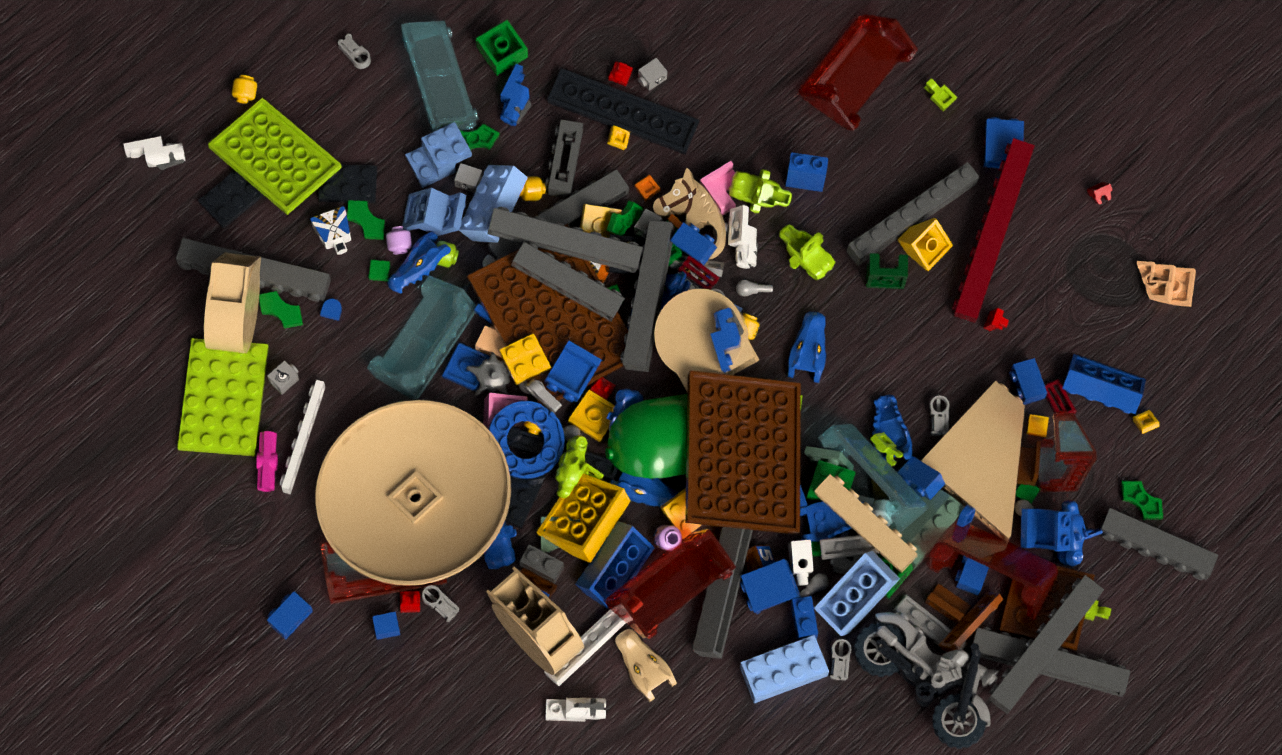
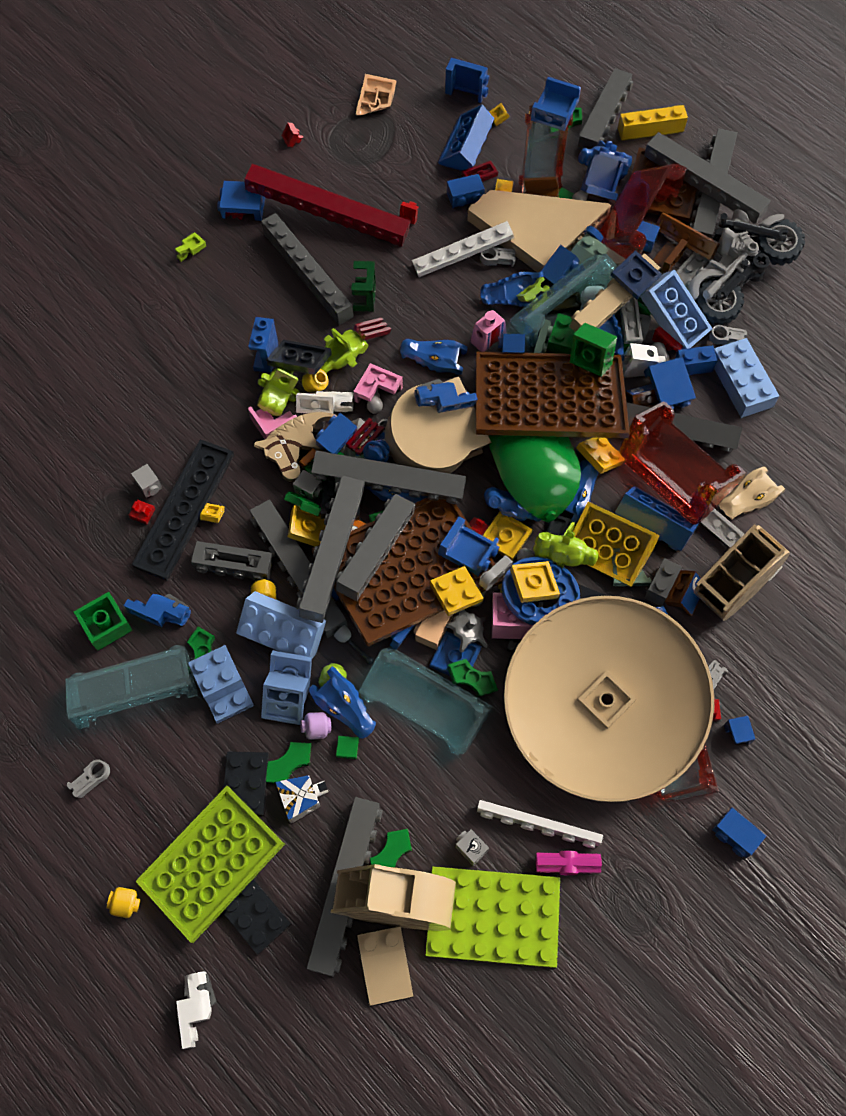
camera: 85 degrees left, 5 degrees down
(182, 304) = (385, 966): none -> tan slope
(331, 309) = (391, 797): blue tile -> none
(447, 371) = (463, 673): none -> green tile
(468, 178) = (248, 655): light grey brick -> none
(531, 429) = (534, 581): none -> yellow plate
(575, 709) = (803, 551): white plate -> none
(647, 187) = (266, 488): orange tile -> none
(667, 537) = (628, 469): lavender head -> none
(768, 226) = (315, 383): none -> yellow head
(770, 284) = (376, 378): none -> bright pink panel
(790, 206) = (299, 357): none -> black plate
(793, 494) = (593, 349): none -> green brick
(814, 421) = (512, 343): none -> blue brick
(825, 591) = (662, 336): none -> red tile
(835, 402) = (488, 330): none -> bright pink torso
(845, 295) = (370, 327): none -> dark red tile
(857, 68) = (154, 309): clear red windscreen -> none
(884, 539) = (636, 275): none -> dark blue plate
(925, 243) = (334, 260): yellow slope -> none
(943, 376) = (463, 249): none -> white plate
(1070, 439) = (556, 104): none -> blue panel
(1146, 608) = (650, 122): none -> yellow wedge
(1193, 365) = (466, 77): none -> blue panel

